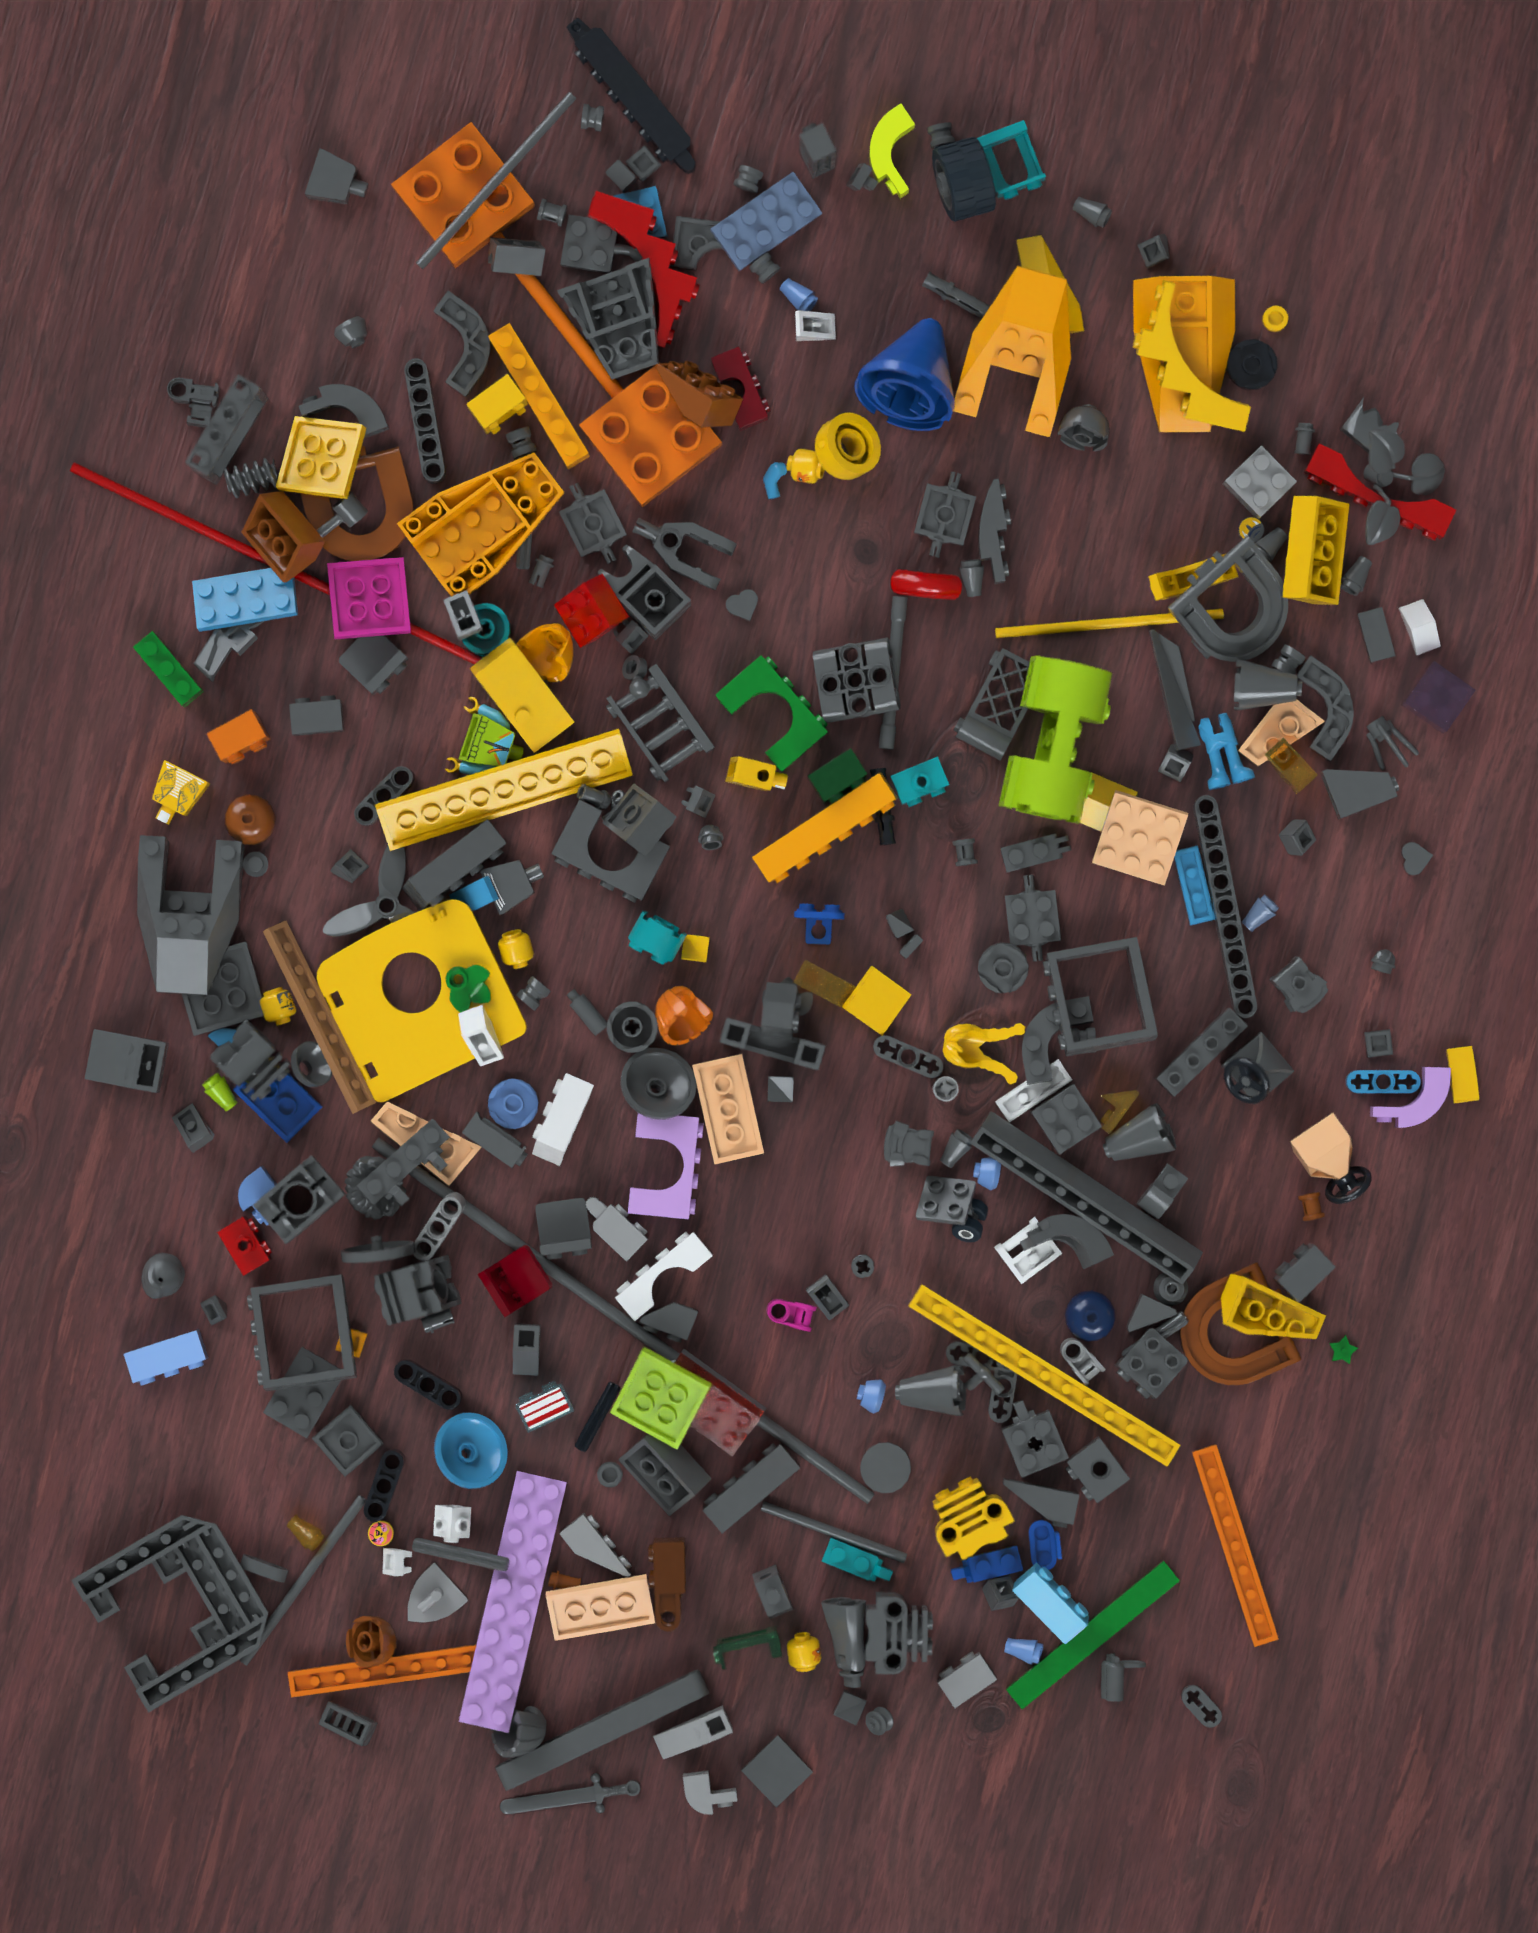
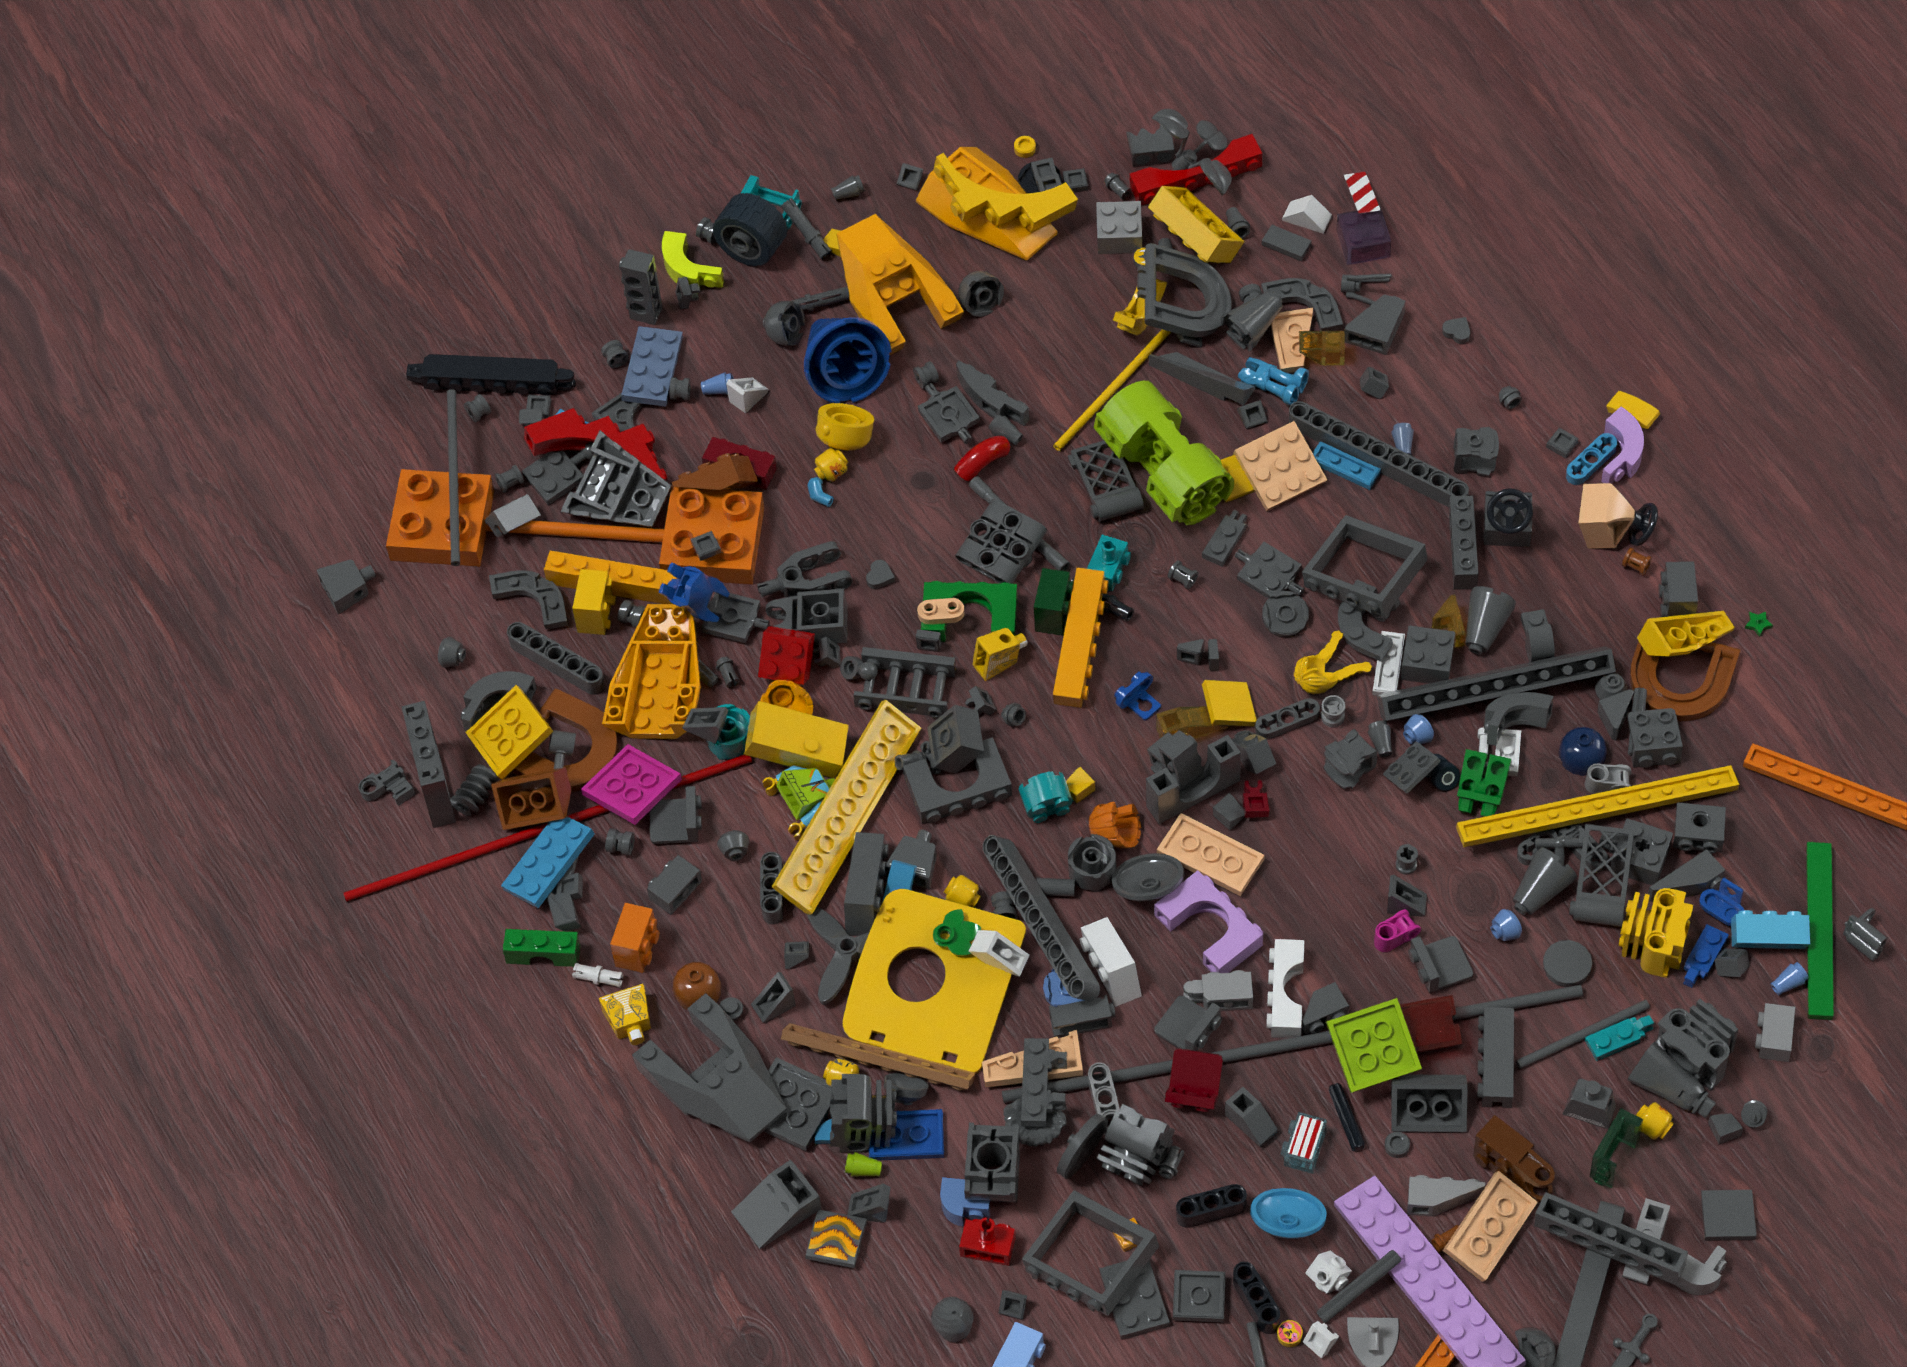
camera: 40 degrees left, 30 degrees down
(144, 1128) = (836, 1238): none -> slope
(189, 733) = (597, 975): none -> white pin
(291, 891) = (774, 999): none -> dark grey slope
(313, 637) = (620, 841): none -> dark grey wheel
(392, 731) = (733, 844): none -> dark grey cone
(543, 1036) = (1041, 918): none -> dark grey beam
(567, 489) = (693, 591): none -> blue piece
(622, 453) = (705, 545): none -> dark grey tile
(661, 1714) = (1611, 1238): none -> dark grey brick
(715, 705) = (928, 640): none -> dark grey tile
(744, 696) = (941, 613): none -> light nougat plate
(794, 1372) = (1440, 963): none -> dark grey bracket
(806, 1101) = (1254, 801): none -> dark red plate
(850, 1058) = (1254, 751): none -> dark grey slope
(903, 293) = (784, 322): none -> dark grey cylinder
(954, 1453) = (1598, 907): none -> dark grey piece
(965, 459) = (926, 374): none -> dark grey wheel
(975, 1268) = (1482, 789): none -> green hips
(1014, 221) = (804, 226): none -> dark grey pin
(1253, 375) = (1045, 174): none -> dark grey slope
(1278, 395) = (1076, 179): none -> dark grey tile
(1480, 657) = (1362, 192): none -> sticker

